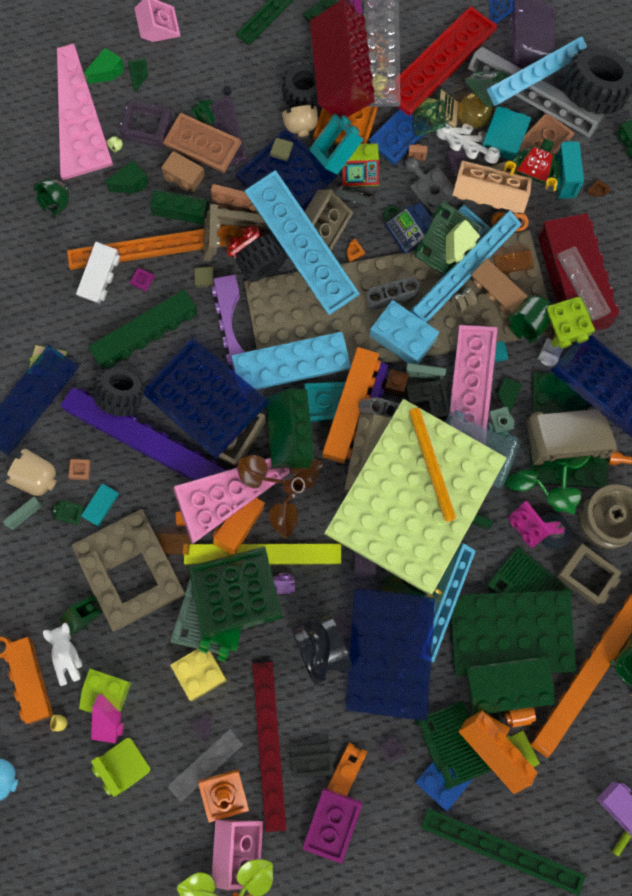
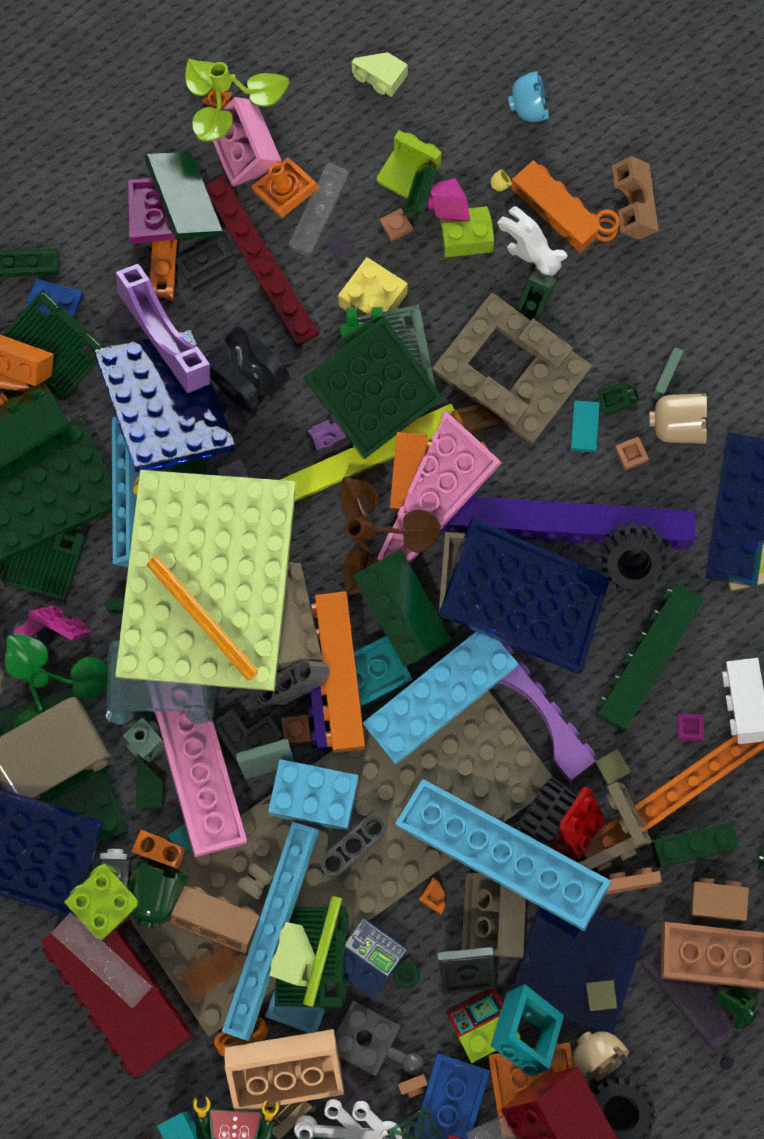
camera: 160 degrees right, 0 degrees up
(99, 864) = (381, 71): none -> yellowish green slope
(123, 739) = (419, 192): none -> dark green tile
(154, 725) = (396, 225): none -> nougat plate
(305, 825) = (183, 195): none -> tile
(372, 729) = (182, 357): none -> medium lavender arch
(442, 234) = (322, 951): none -> lime piece
(518, 347) = (159, 850): none -> orange leg

